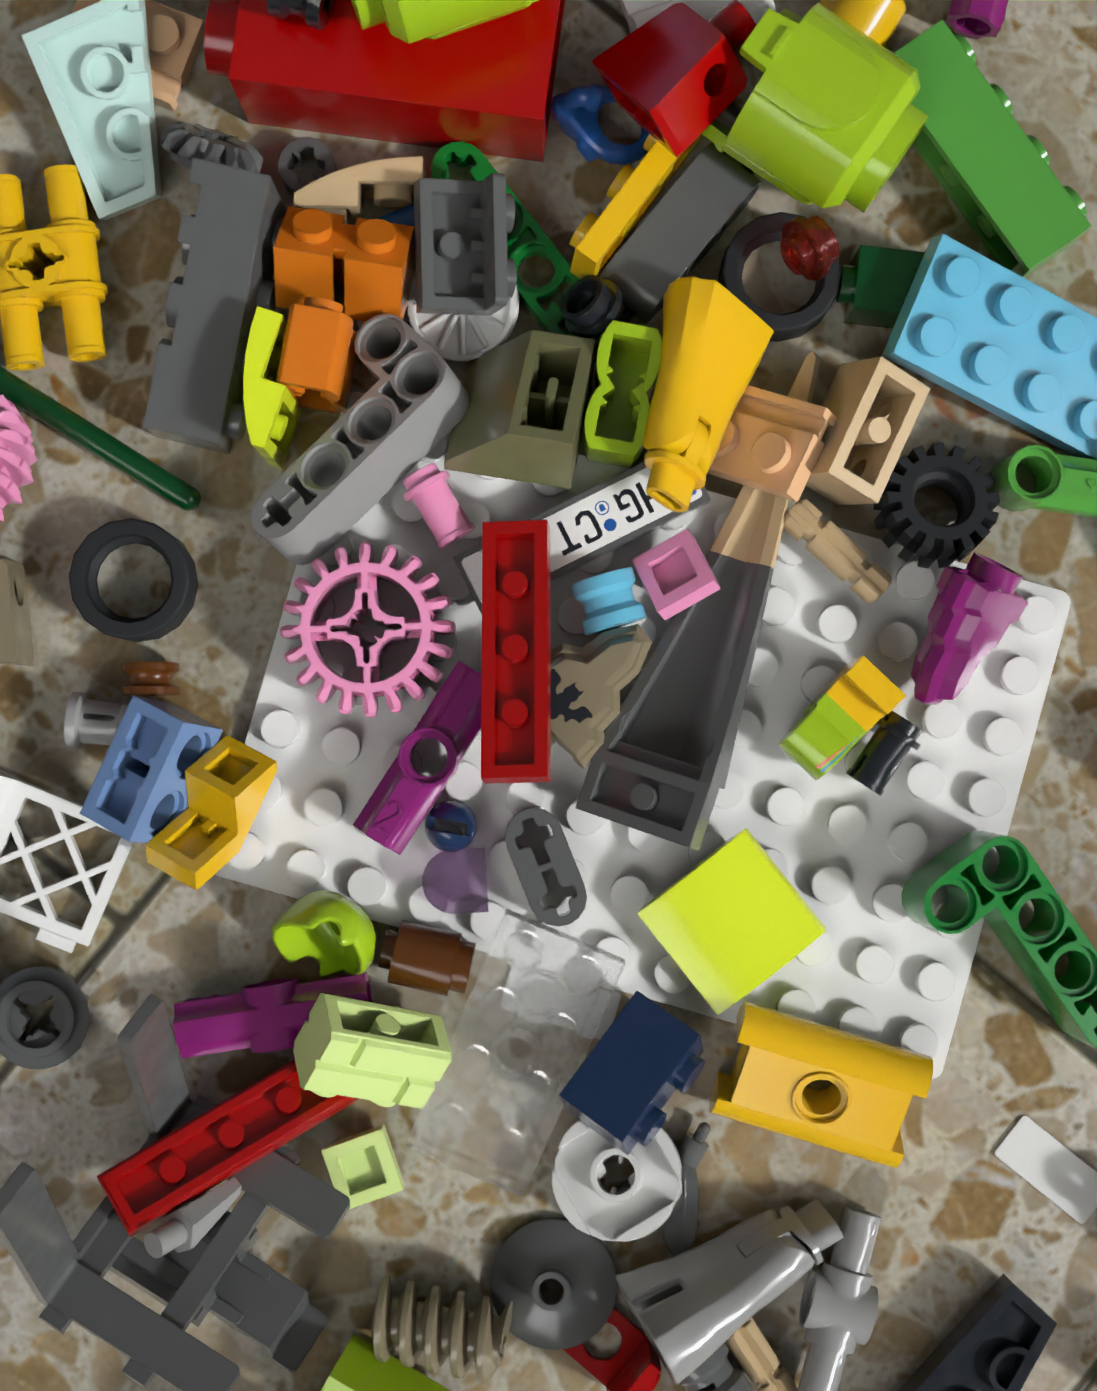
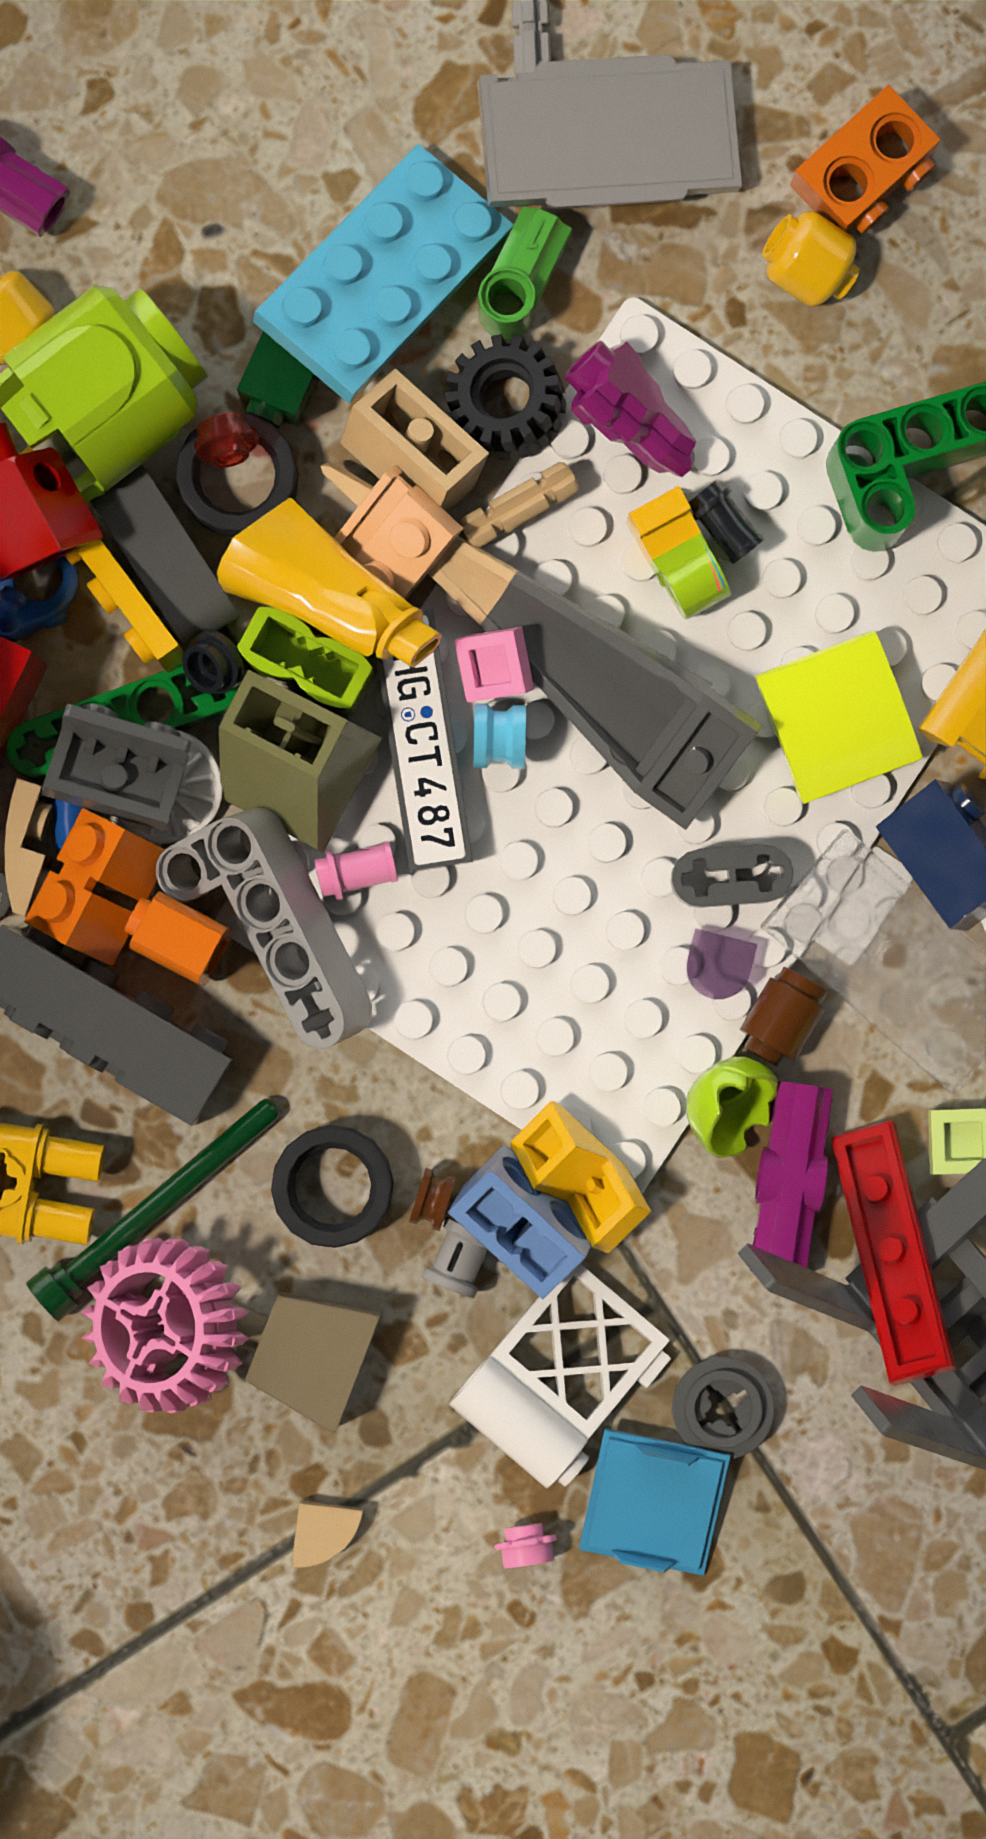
camera: 70 degrees left, 0 degrees up
(190, 1223) = (960, 1308): light grey bar -> none
(268, 405) = (209, 997): neon yellow slope -> none
(367, 597) = (401, 957): bright pink gear -> none
(371, 1052) = (855, 1093): yellowish green brick -> none
(404, 793) = (565, 919): magenta piece -> none
(453, 811) = (651, 948): dark blue hinge -> none
(516, 652) = (522, 836): red plate -> none
(588, 687) = (574, 794): dark tan rock -> none
(986, 159) = (186, 242): bright green brick -> none

